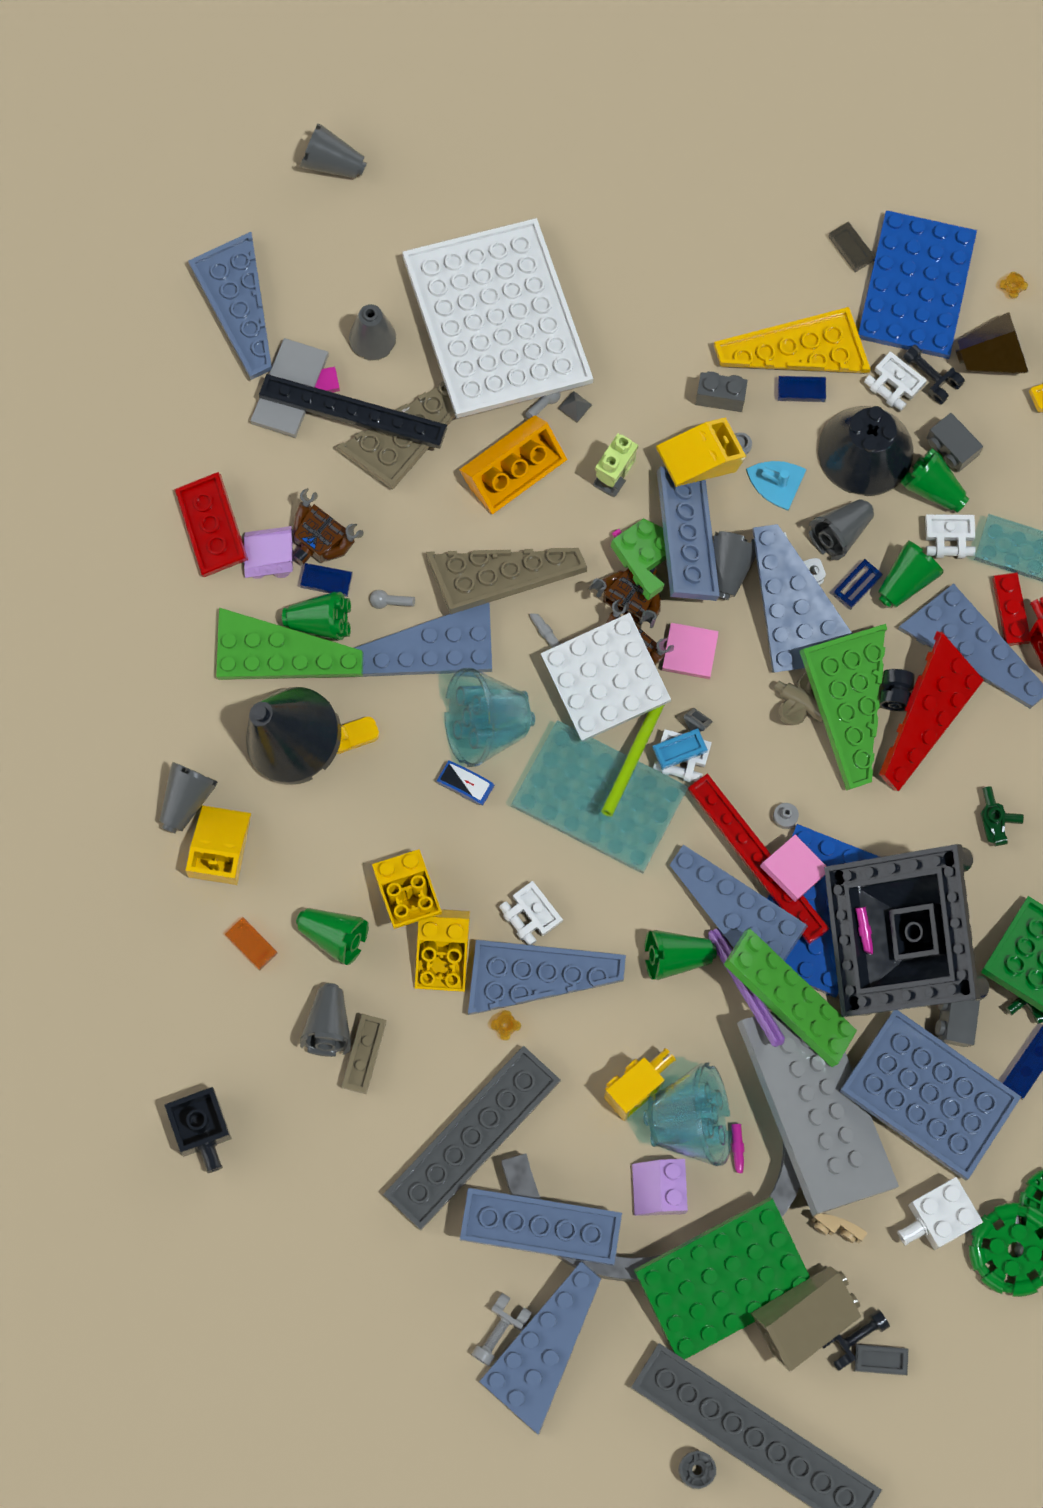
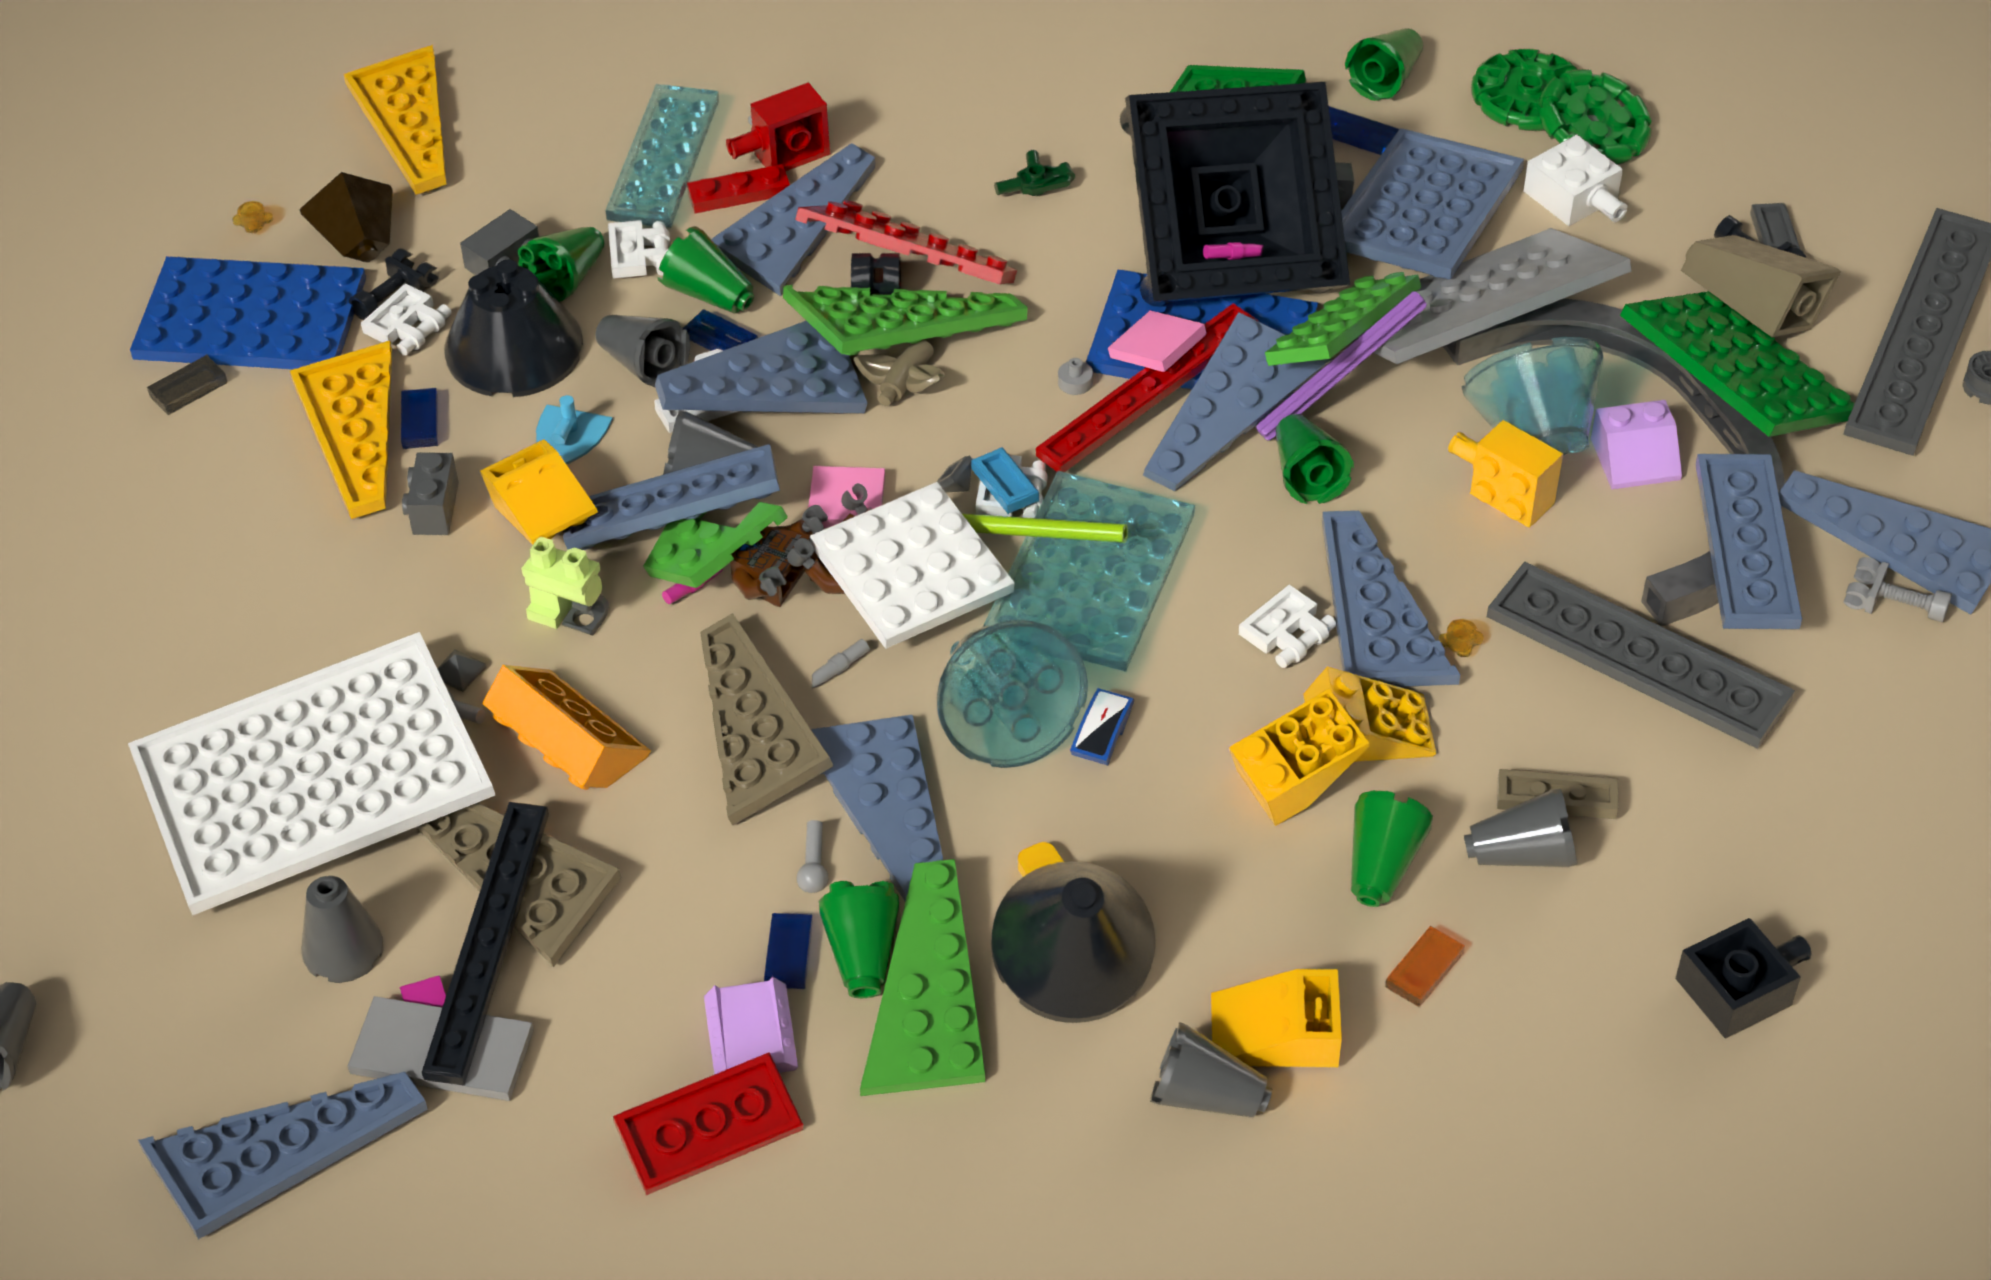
camera: 95 degrees left, 25 degrees down
(319, 533) = (712, 953): reddish brown torso -> none
(829, 1224) = (1627, 285): tan slope -> none

